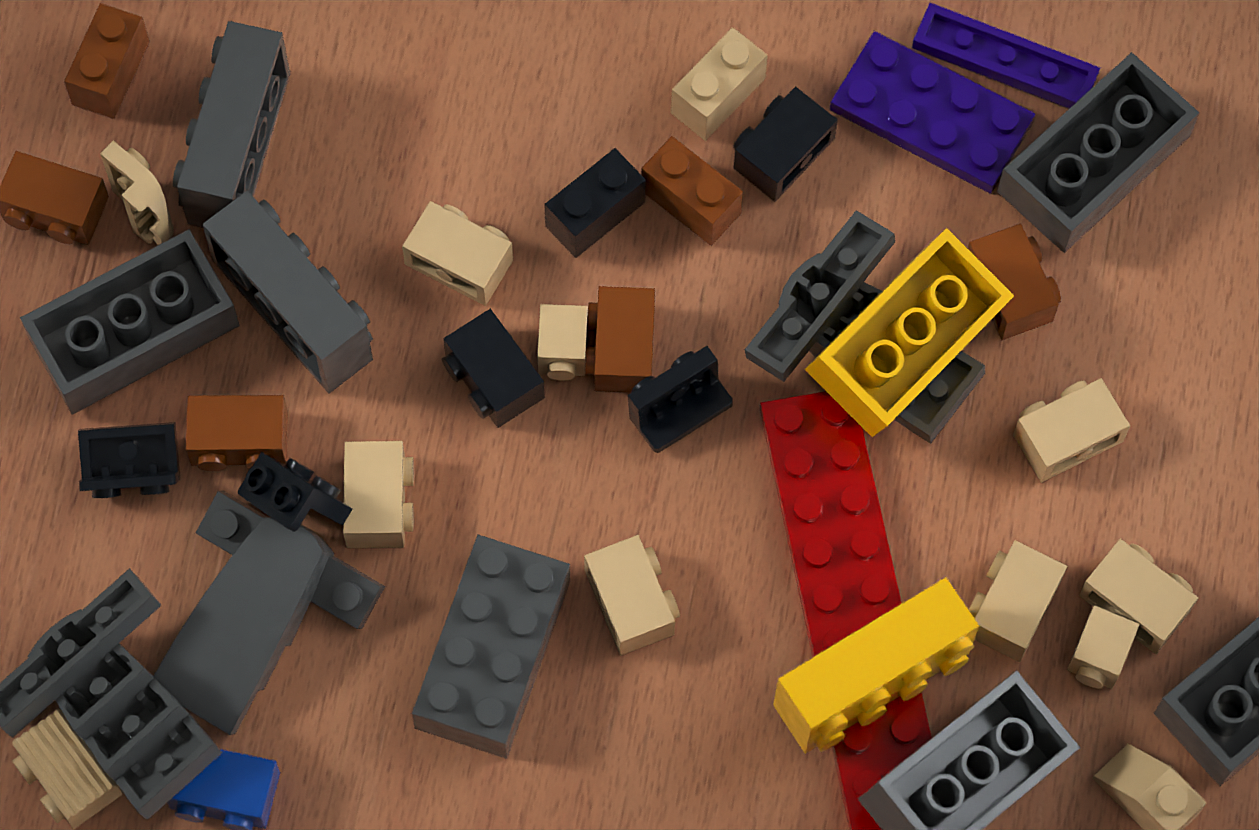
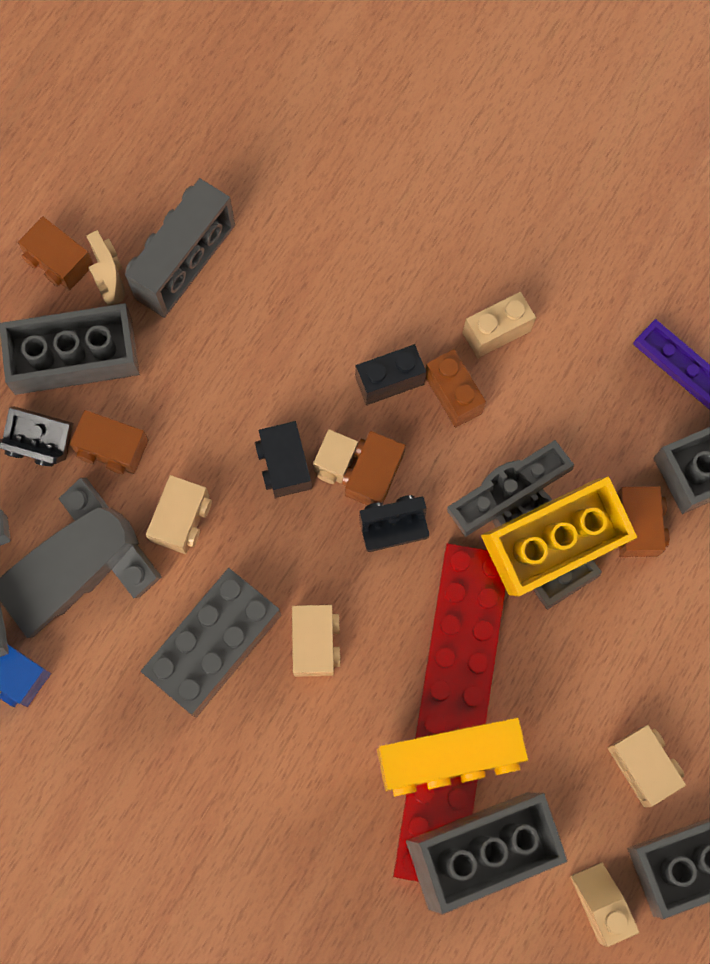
camera: 20 degrees right, 5 degrees up
(107, 61) = (123, 178): dark orange brick -> none
(288, 492) = (123, 494): black bracket -> none
(289, 290) = (175, 363): dark grey brick -> none
(458, 252) = (292, 376): tan brick -> none
(784, 143) = (526, 377): black brick -> none
(932, 112) = (630, 390): dark purple plate -> none
(1016, 599) = (563, 738): tan brick -> none
(1070, 428) = (642, 634): tan brick -> none
(1102, 648) = (608, 793): tan brick -> none

